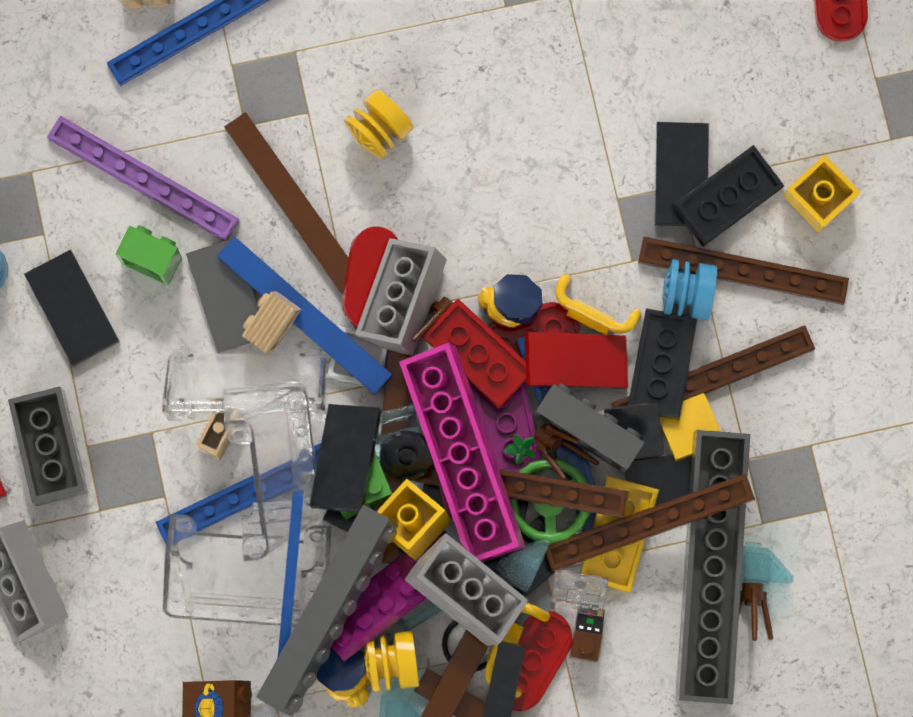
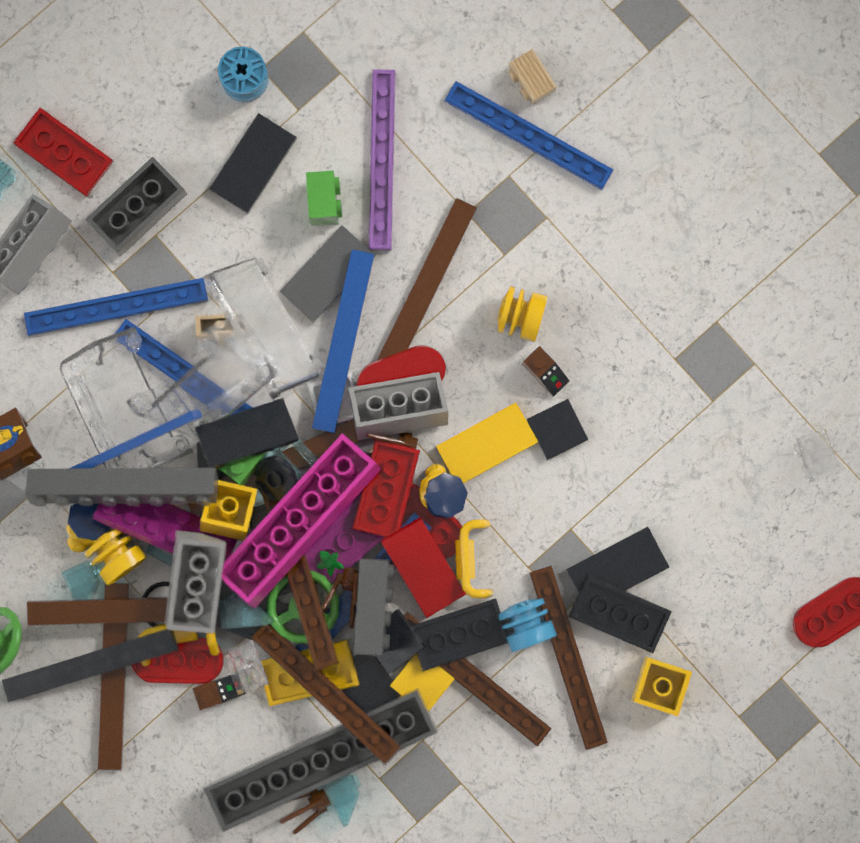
camera: 60 degrees right, 5 degrees up
(137, 526) = (116, 306): none -> blue tile
(270, 322) = (322, 319): tan brick -> none
(447, 135) = (545, 371): none -> slope
(487, 232) = (487, 443): none -> yellow tile
(511, 156) = (557, 429): none -> black tile

